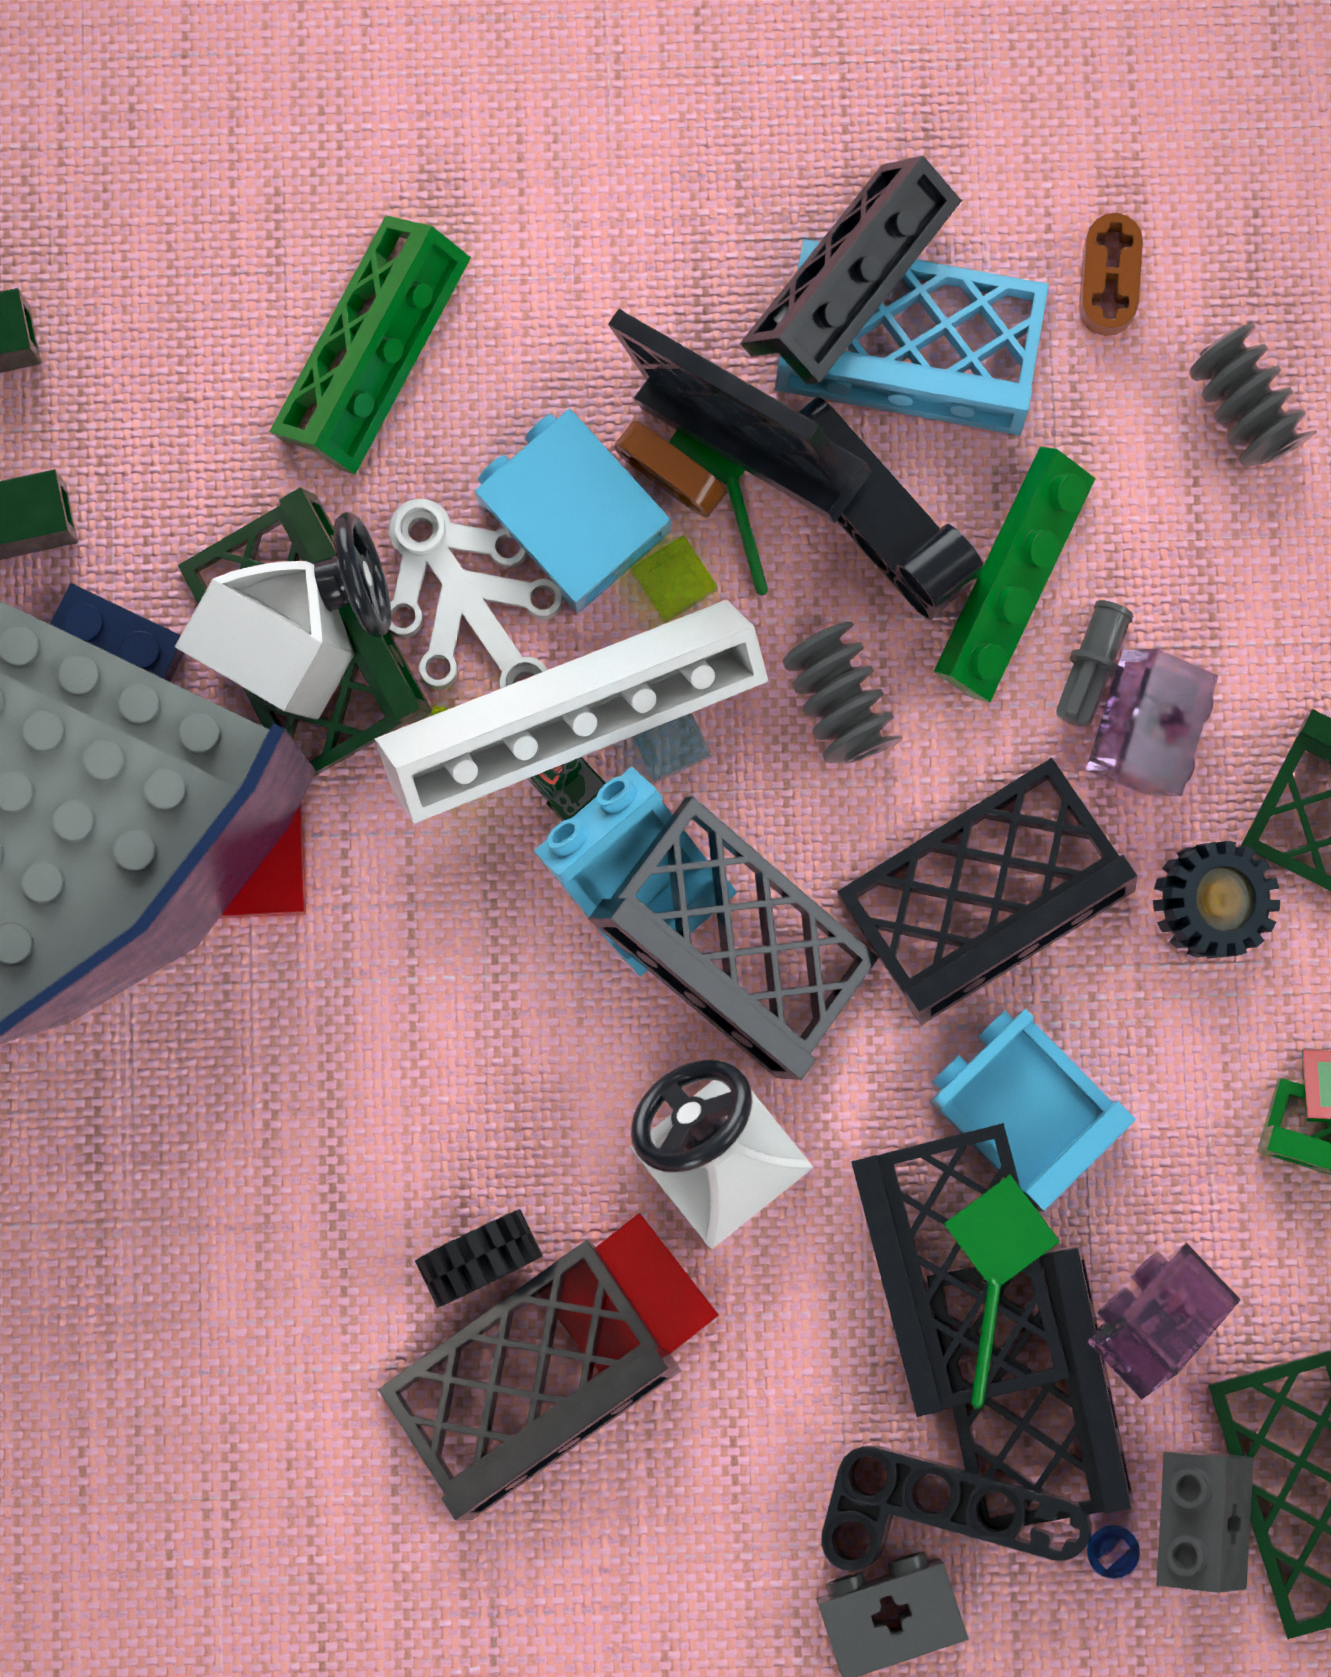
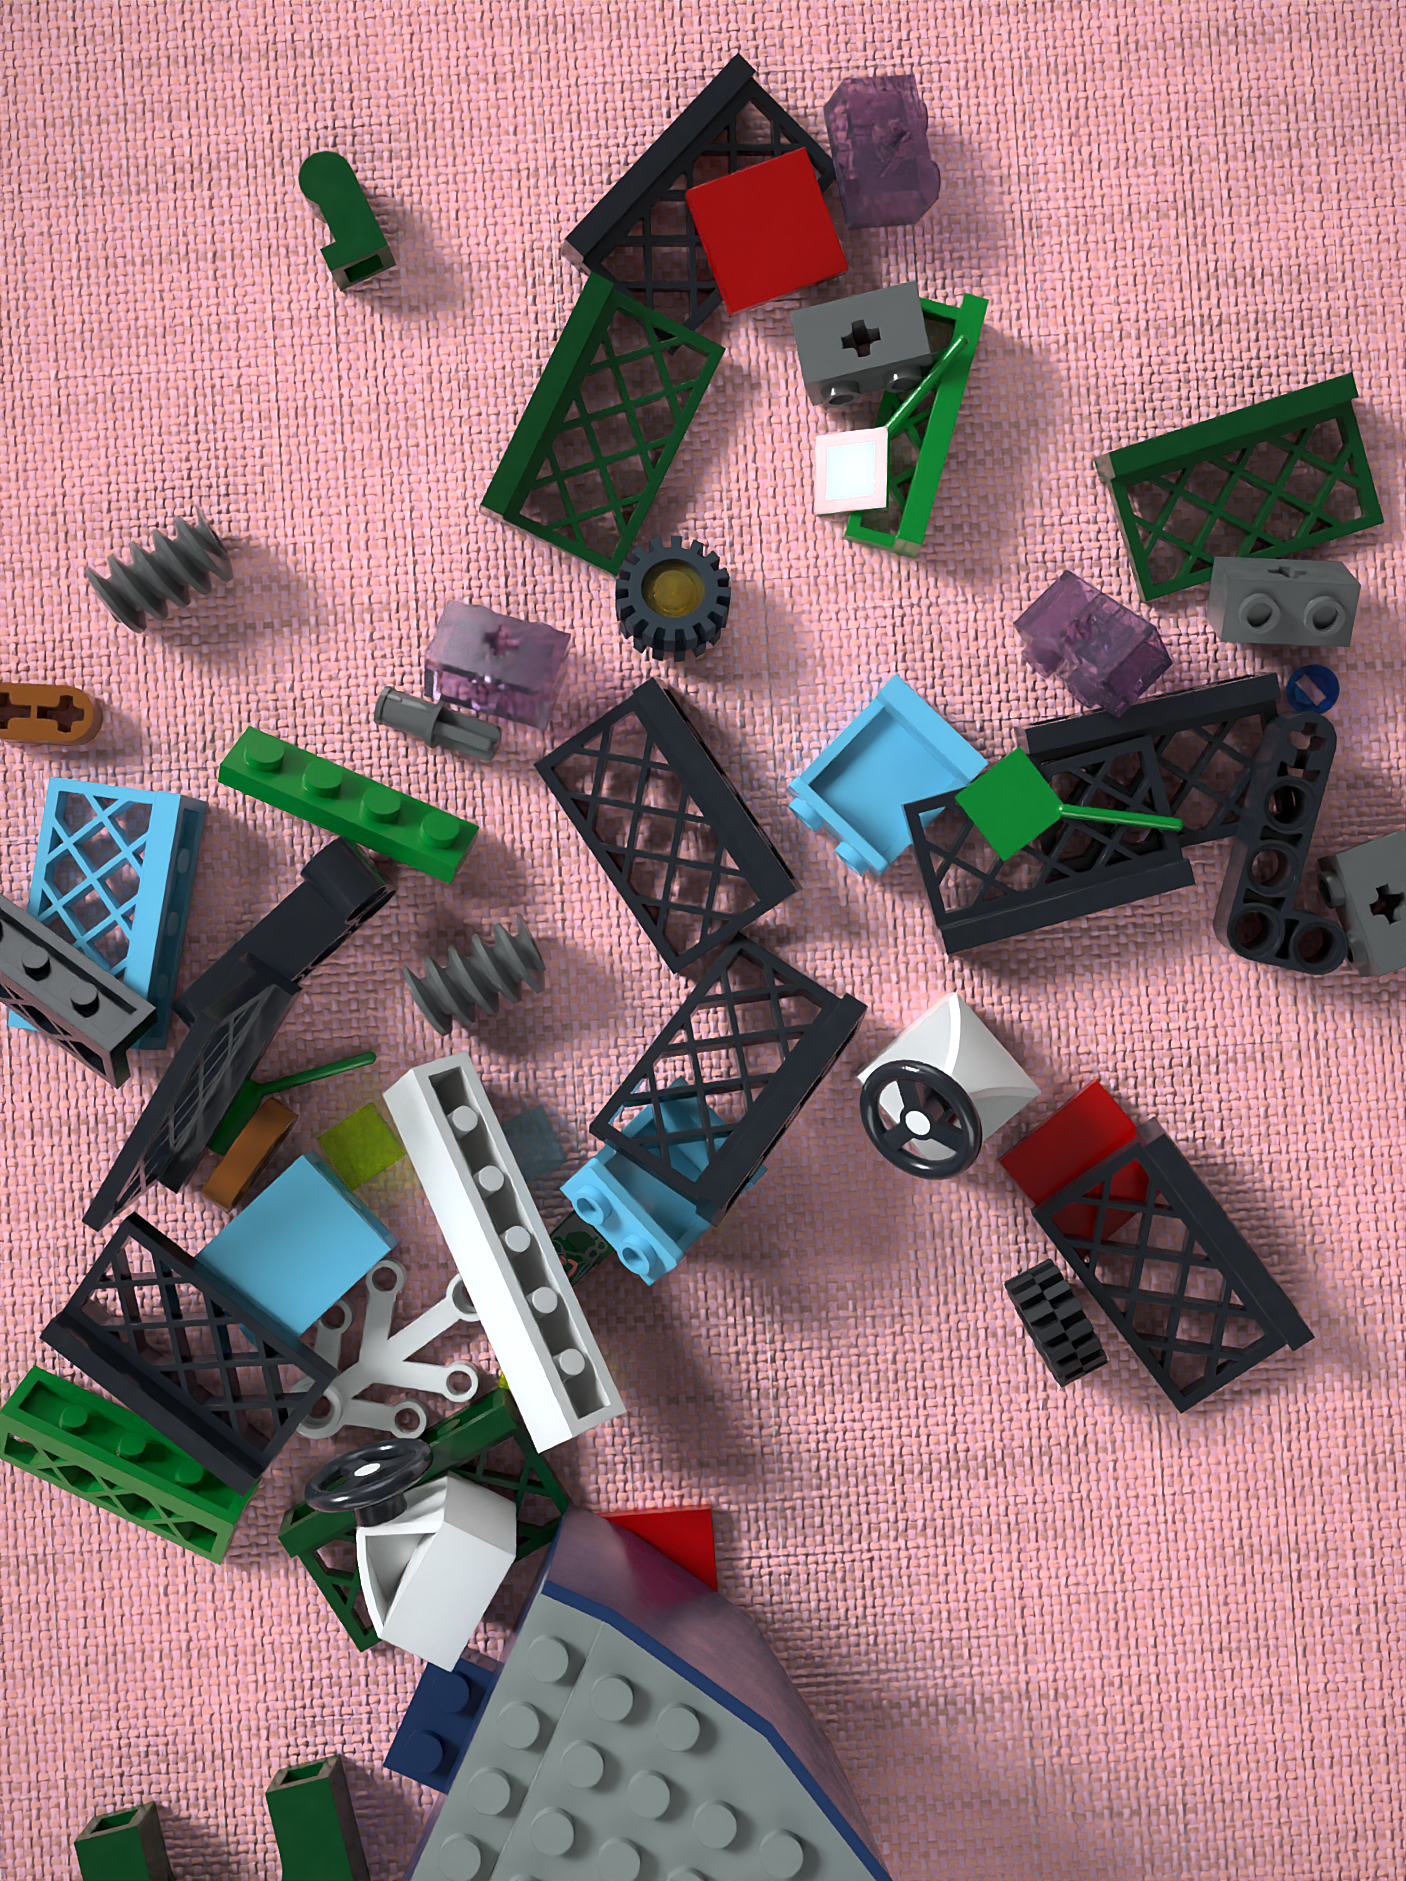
camera: 90 degrees left, 5 degrees up
(447, 384) = (166, 1388): none -> black fence

